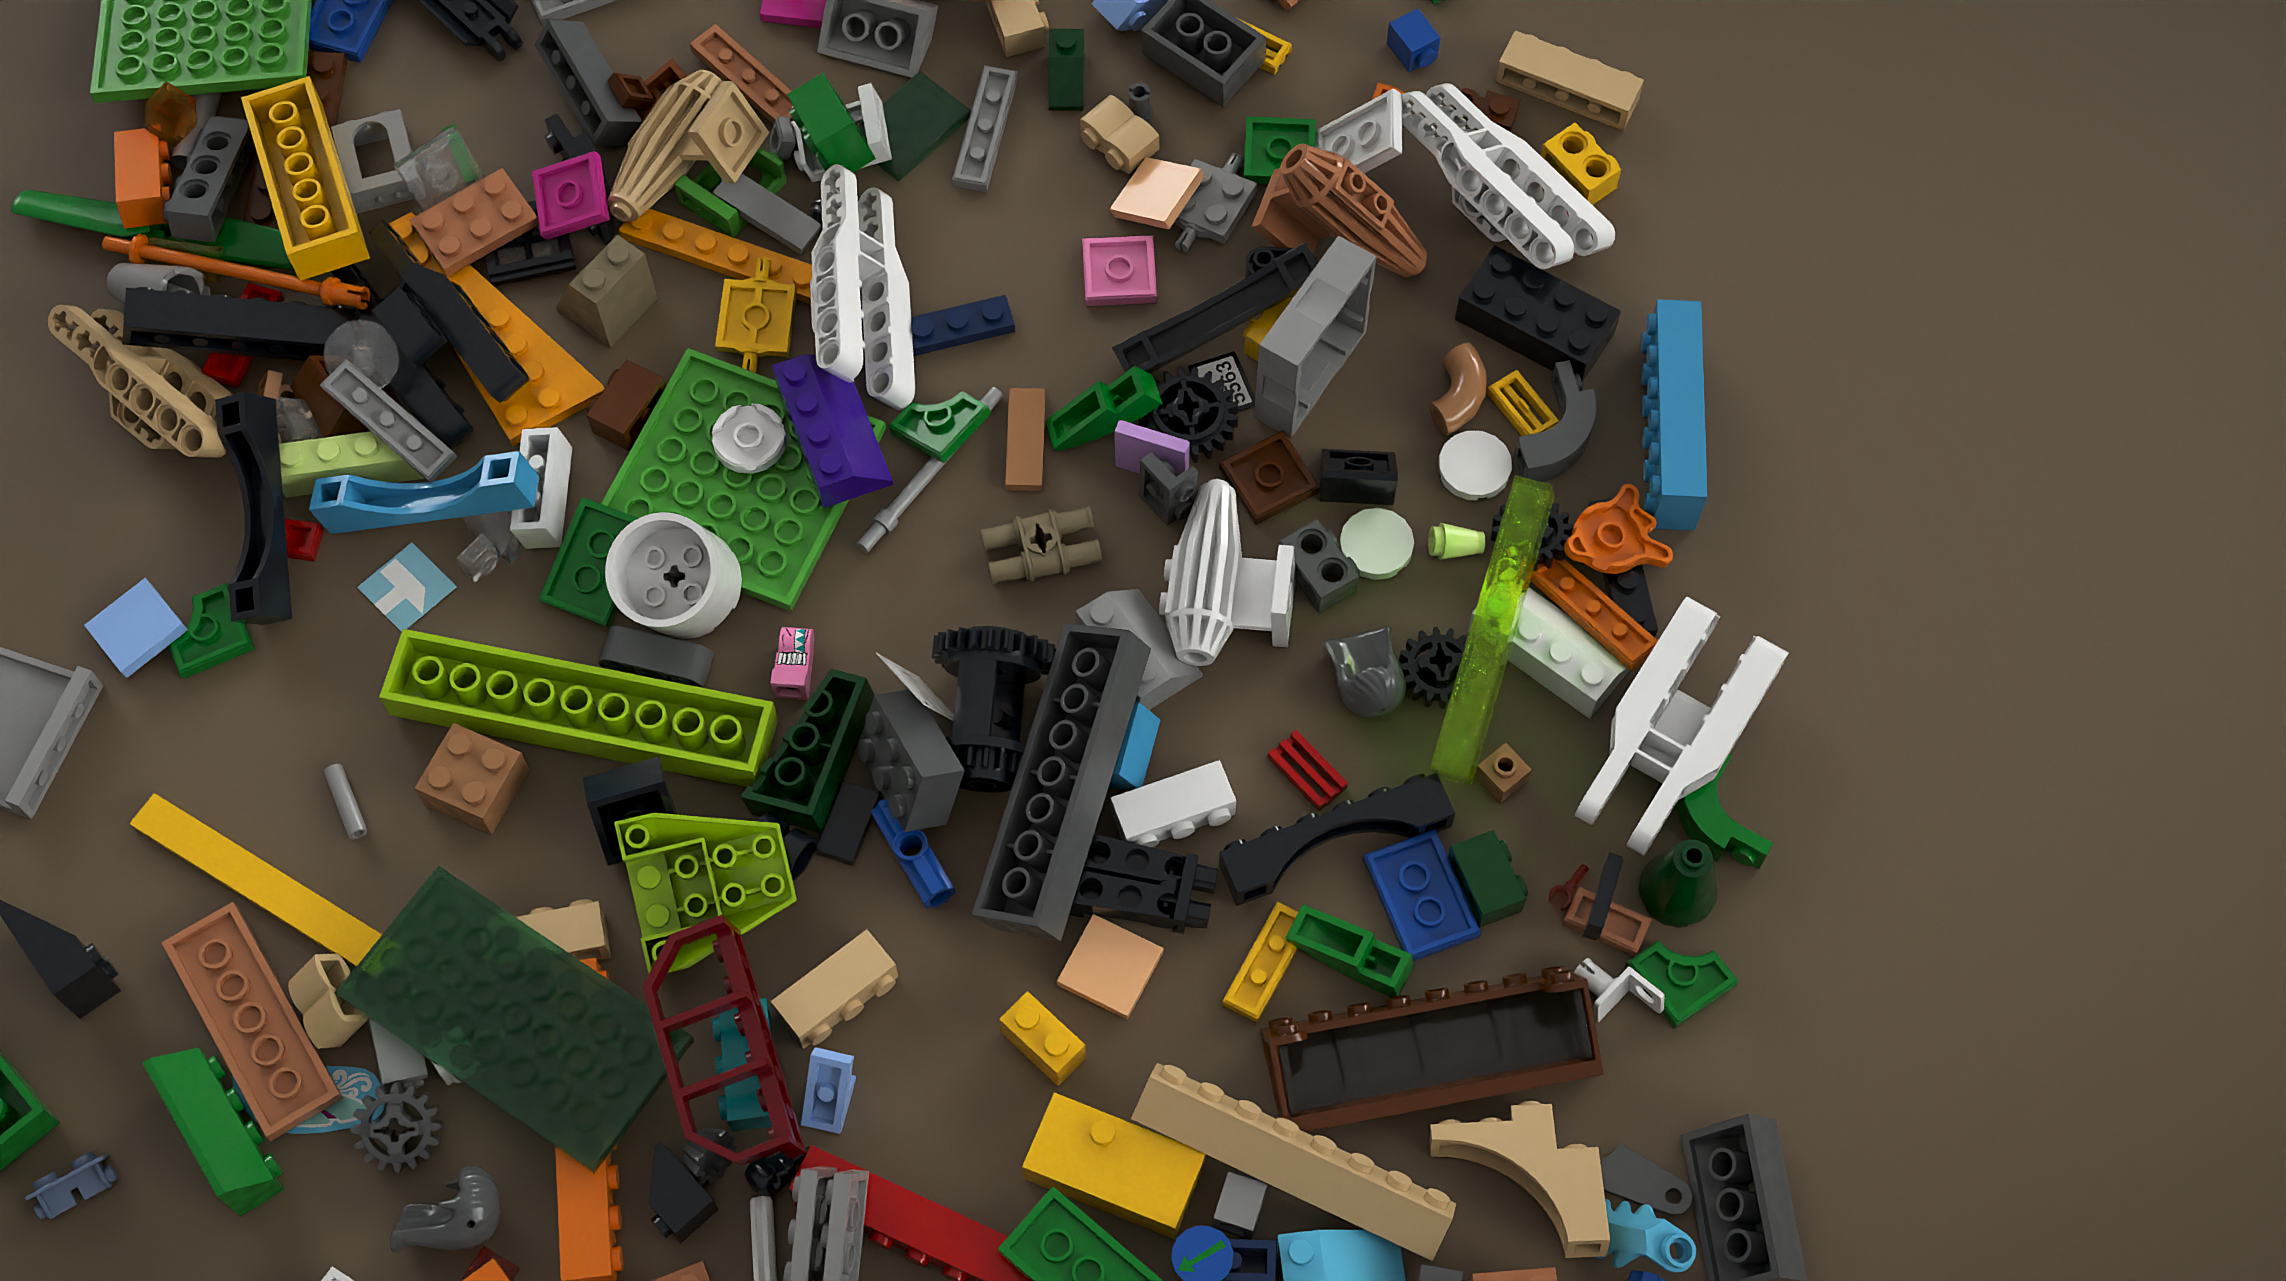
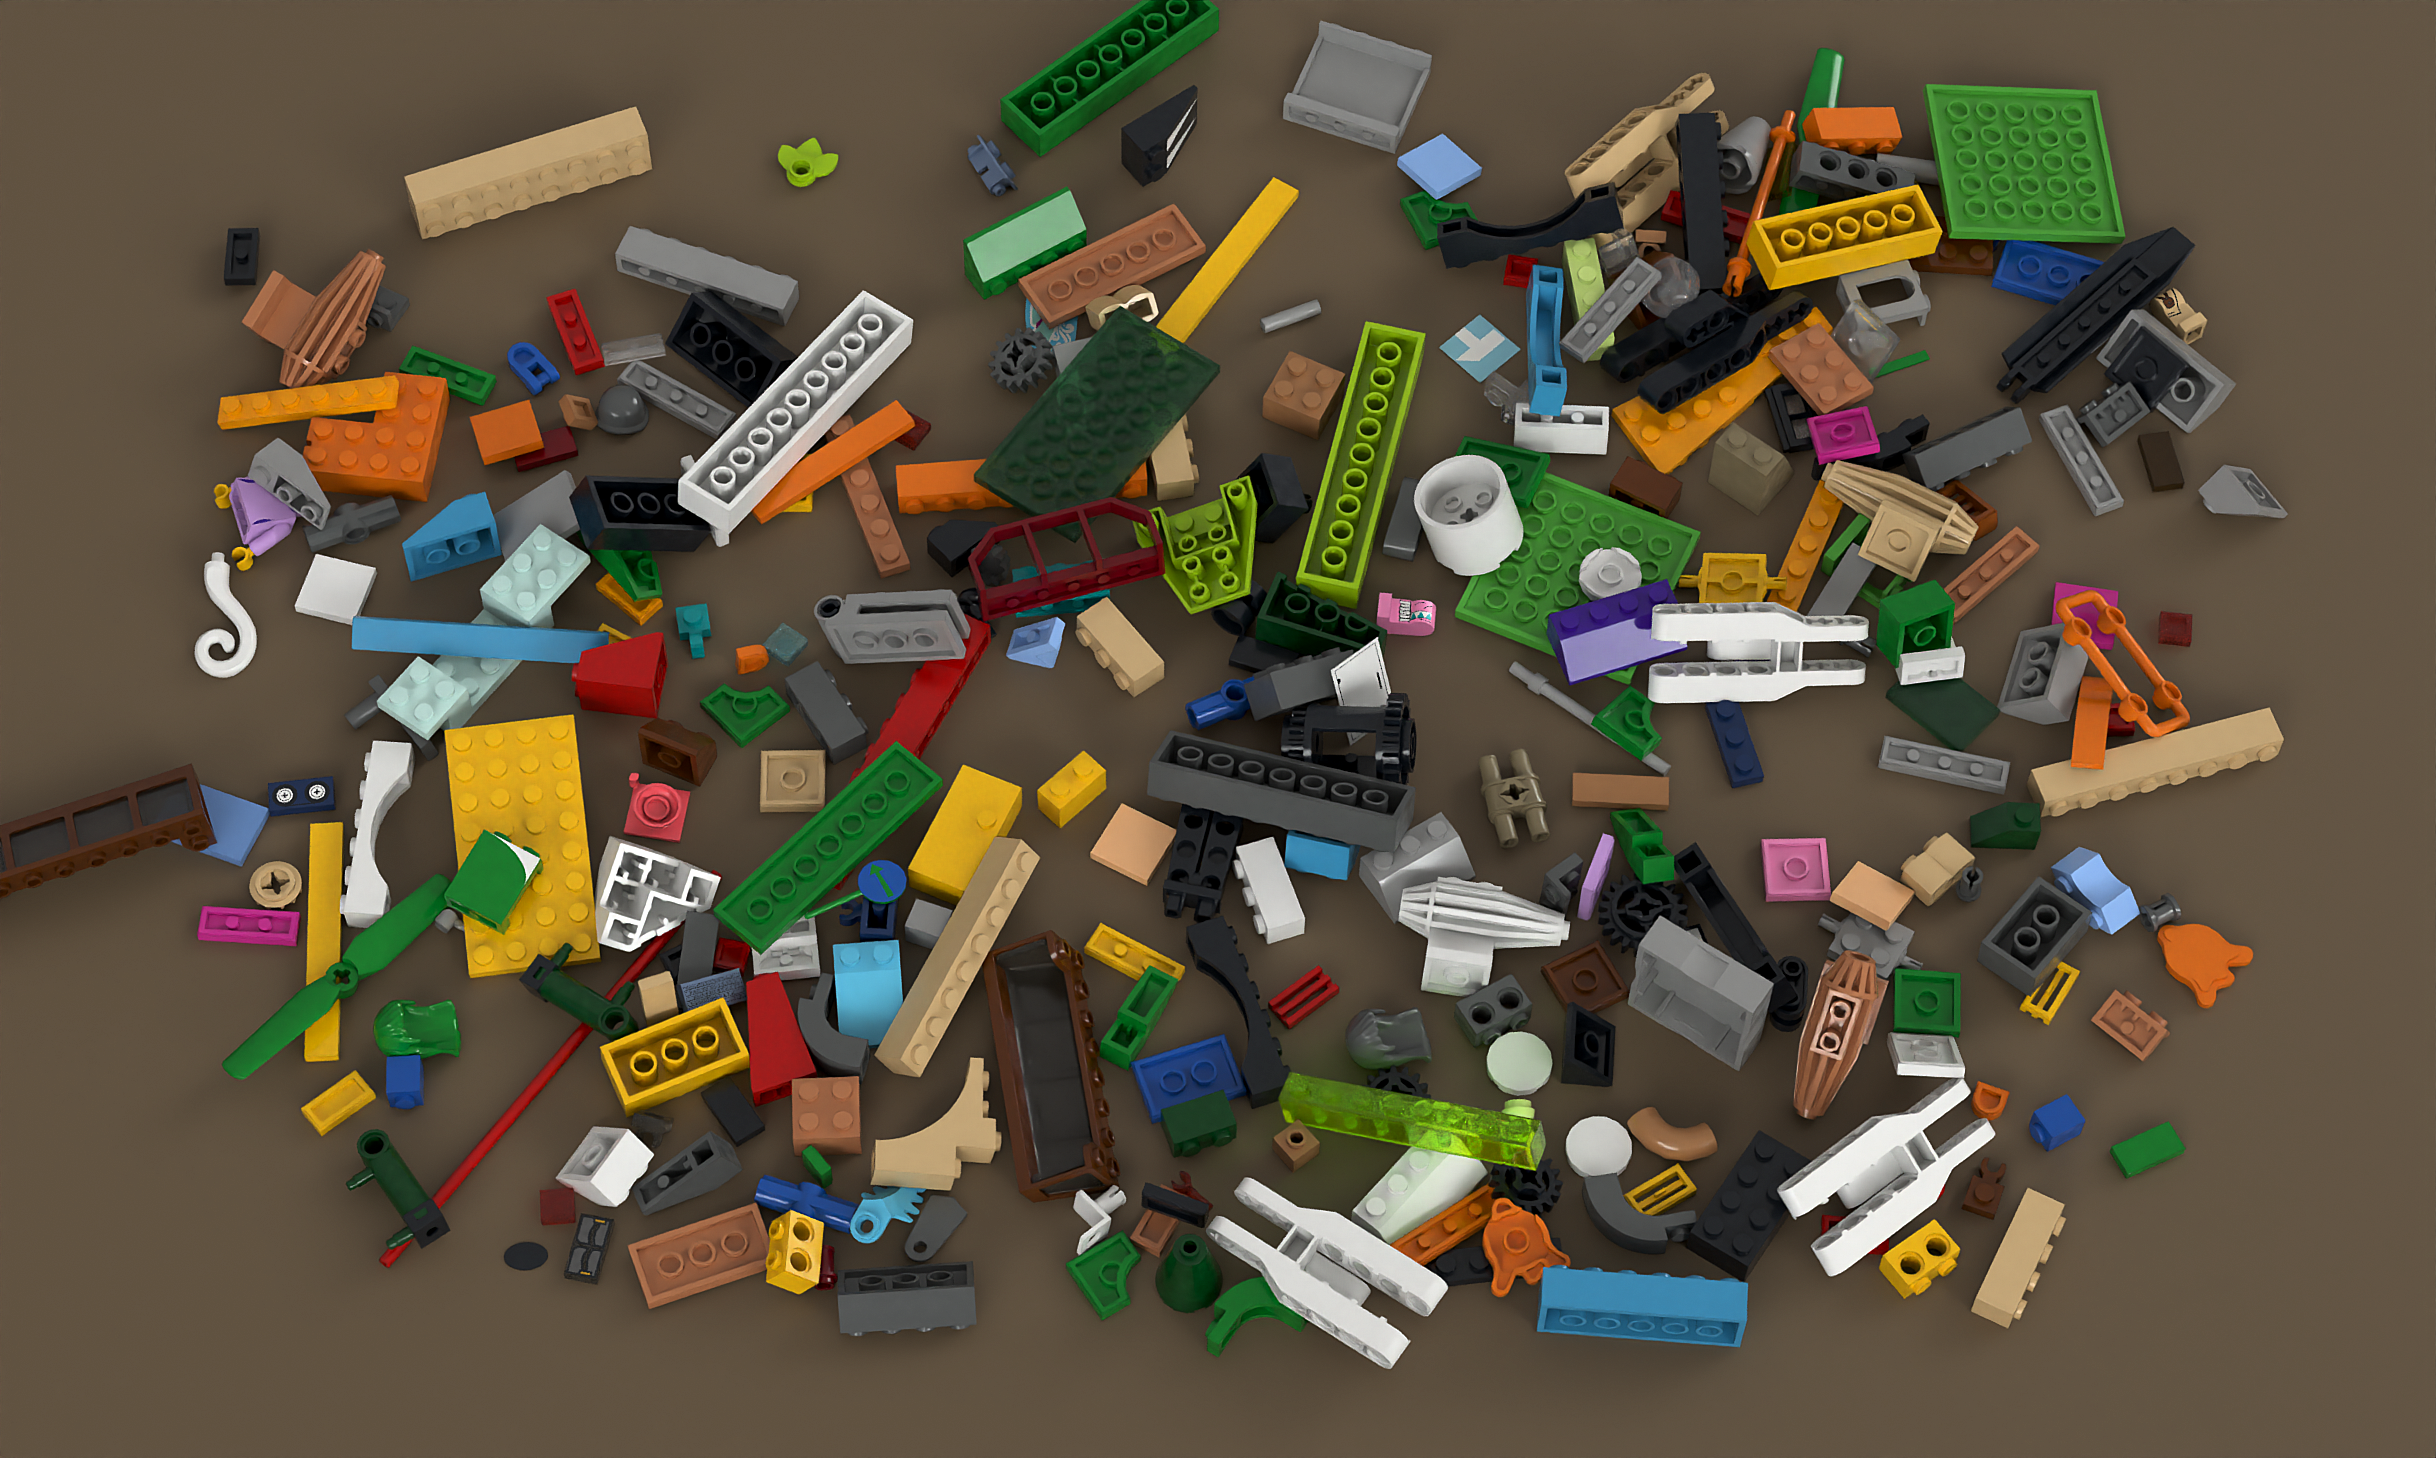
camera: 90 degrees right, 5 degrees down
(170, 114) = (1912, 143): clear orange panel -> none
(456, 1222) = (946, 398): dark grey piece -> none
(631, 91) = (1957, 478): reddish brown tile -> none

